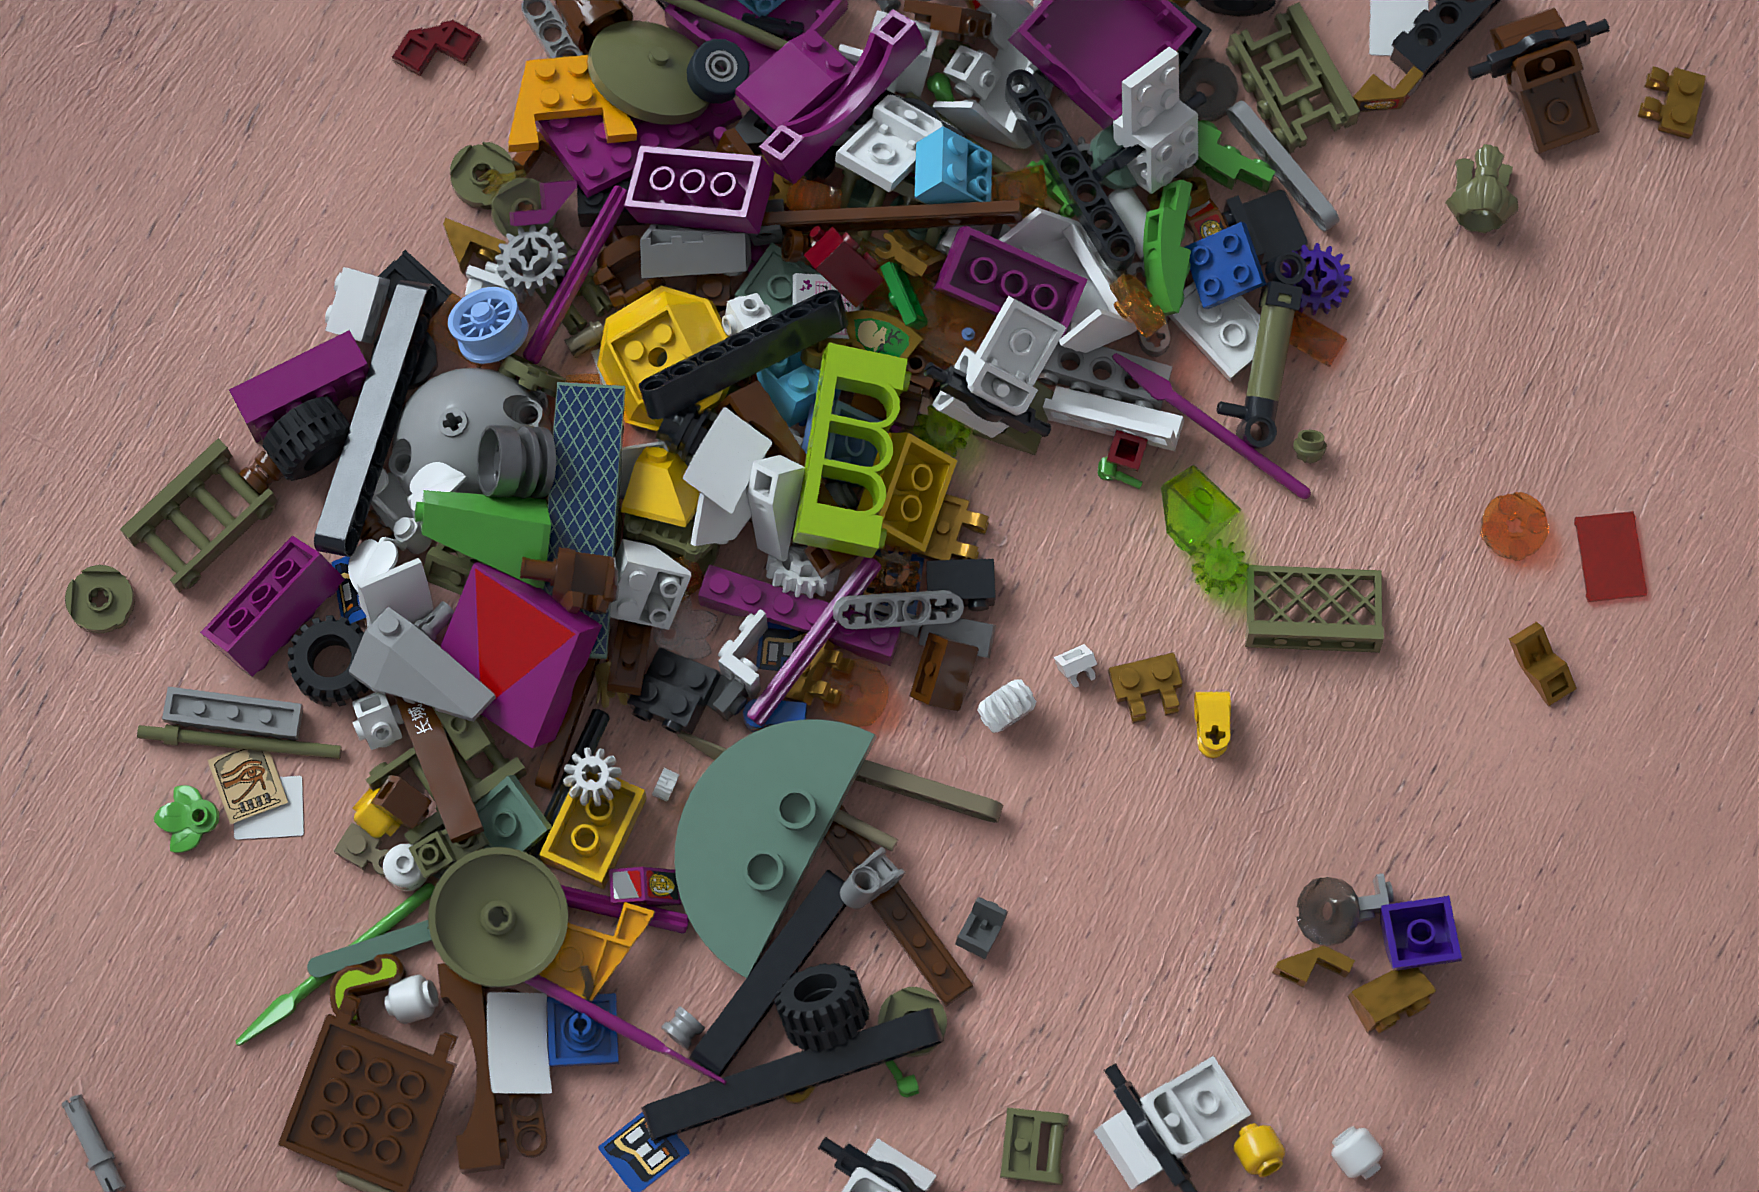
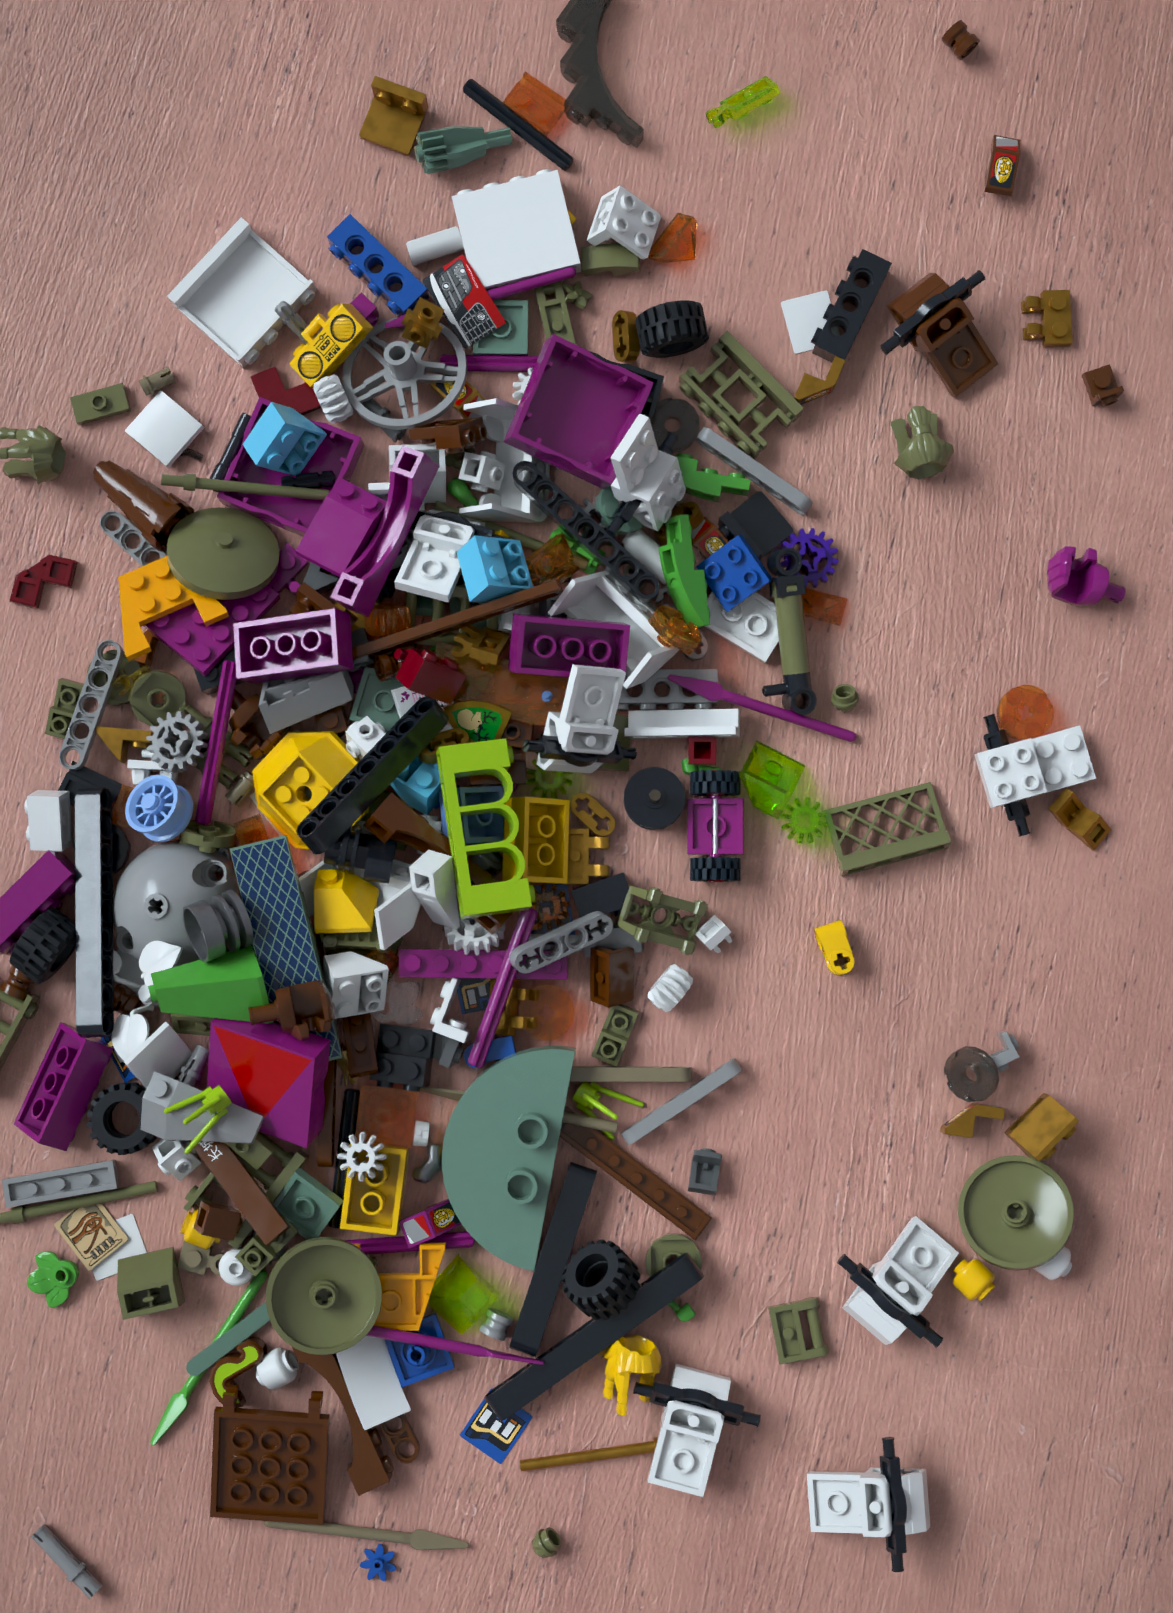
camera: 10 degrees left, 10 degrees up
(297, 856) = (149, 1283): none -> olive slope
(416, 193) = (64, 707): none -> olive slope
(445, 656) = (215, 1101): none -> lime plant
(449, 178) = (88, 691): none -> light grey beam
(552, 198) = (177, 682): magenta slope -> none
(588, 983) = (413, 1323): clear smoke leg -> none
(638, 748) = (387, 1114): none -> clear orange plate
(651, 984) = (461, 1295): none -> clear neon green slope
(664, 827) = (431, 1166): none -> flat silver arm
(708, 78) = (271, 546): black wheel -> none
(726, 459) = (386, 873): white sticker -> none
(814, 1106) = (629, 1356): none -> yellow piece
(873, 802) = (588, 1097): none -> lime plant
(874, 876) = (608, 1159): light grey piece -> none
(903, 296) = (486, 683): green plate -> none
(926, 742) = (615, 1034): none -> olive slope
(979, 840) = (681, 1101): none -> light grey beam
(985, 486) = (588, 819): none -> pearl gold beam
(1038, 611) = (662, 932): none -> olive piece
(1054, 489) = (654, 798): none -> black wheel
(1116, 540) = (715, 826): none -> plate
(1145, 678) = (771, 927): pearl gold plate -> none
(1332, 1084) = (1016, 1212): none -> olive dish
(1420, 933) = (1050, 1074): dark purple slope -> none
(1495, 587) = (1030, 768): none -> white piece
(1610, 556) = (1106, 713): clear red piece -> none
(1621, 395) = (1080, 579): none -> magenta piece
(1712, 192) = (1102, 386): none -> reddish brown bracket

